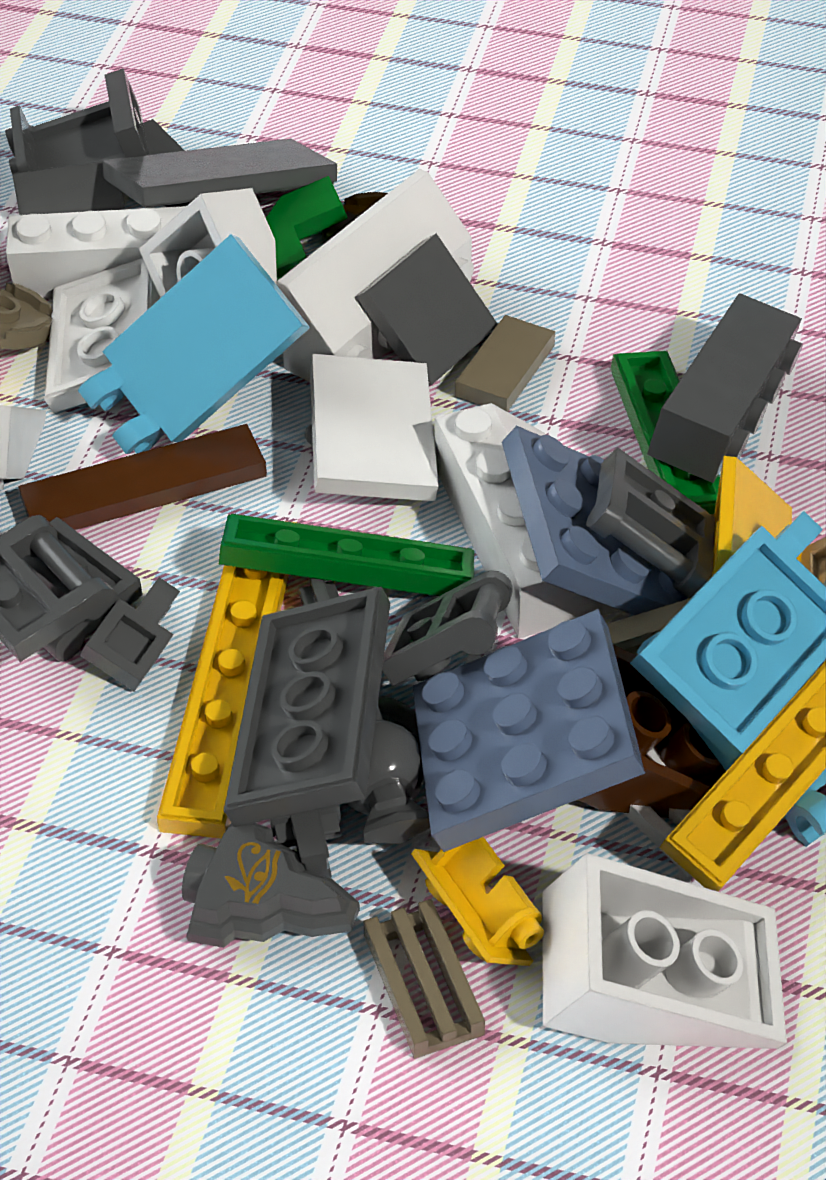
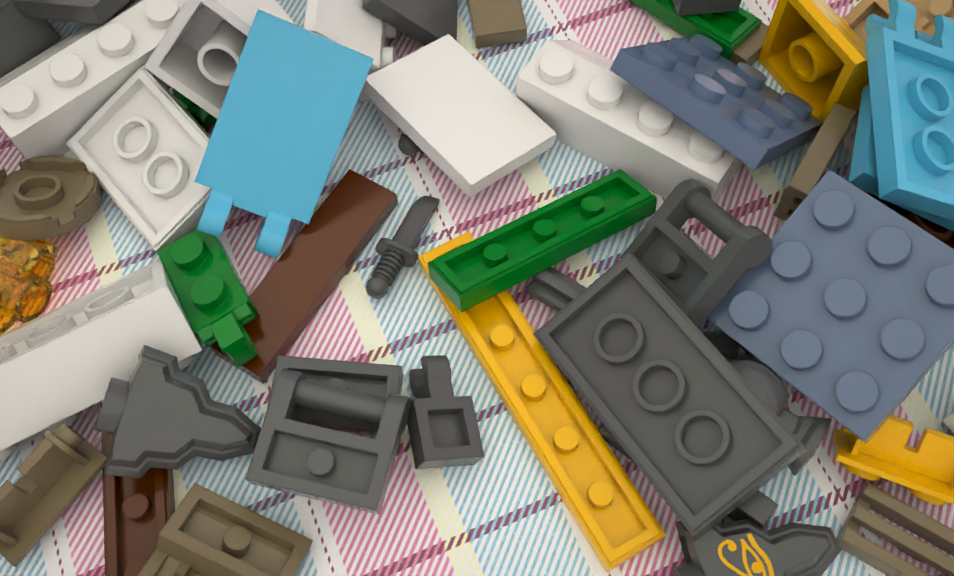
camera: 35 degrees left, 15 degrees up
(54, 448) = (211, 293): none -> green hinge
(238, 503) = (400, 250): none -> dark grey piece
(654, 522) = (766, 69): dark grey plate -> none

